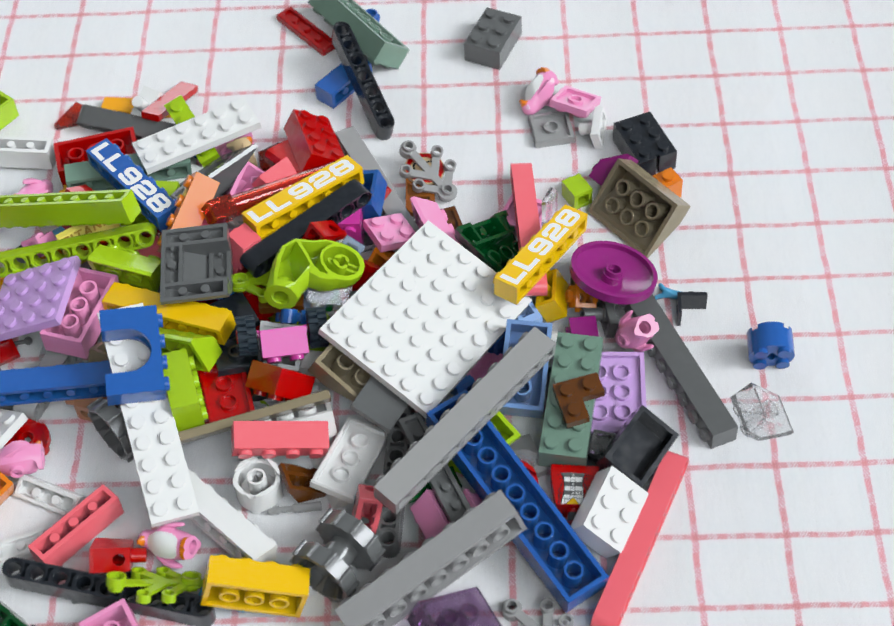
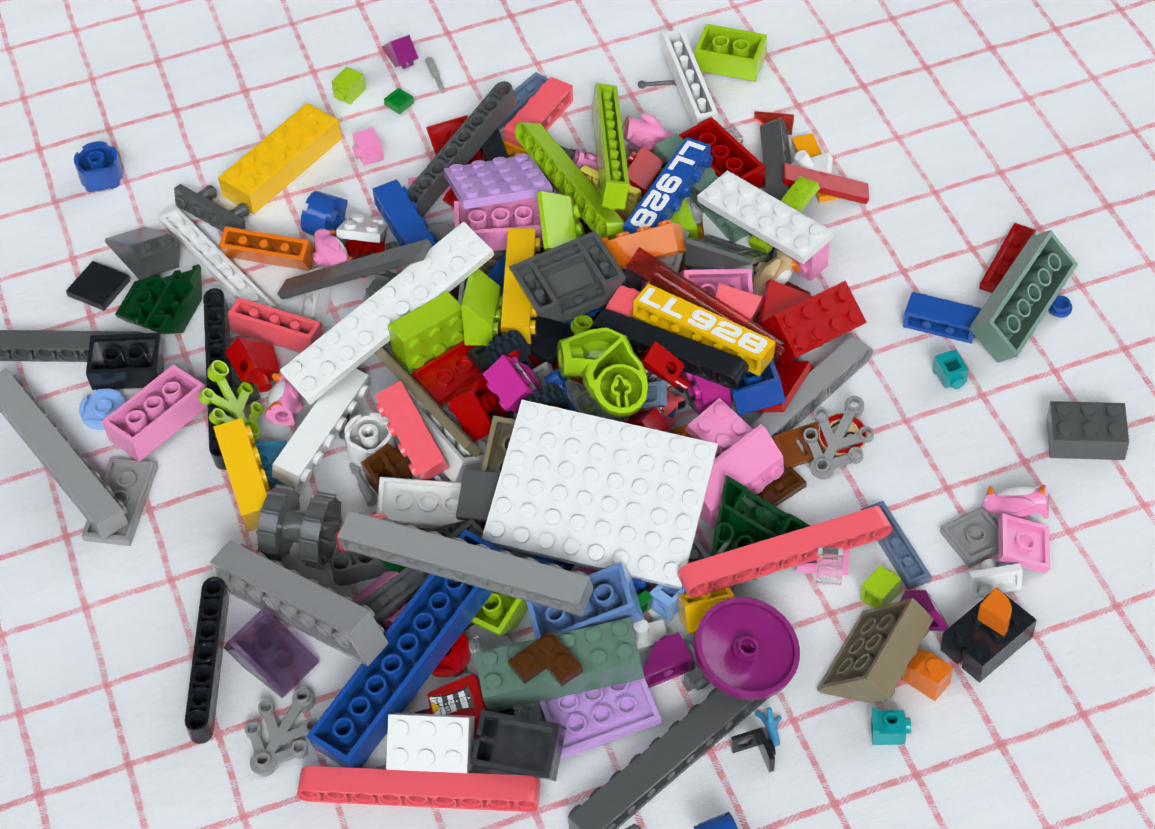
camera: 70 degrees right, 0 degrees up
(66, 434) = (355, 269): none -> dark grey tile
(148, 381) = (409, 293): blue arch -> none
(363, 80) = (932, 338): black beam -> none
(397, 90) = (953, 373): none -> teal brick
(539, 254) = (726, 564): yellow brick -> none
(541, 172) = (902, 554): none -> sand blue tile
(636, 332) = (675, 698): bright pink animal -> none
(644, 122) = (996, 611): none -> orange brick
(700, 220) = (889, 727): none -> teal brick

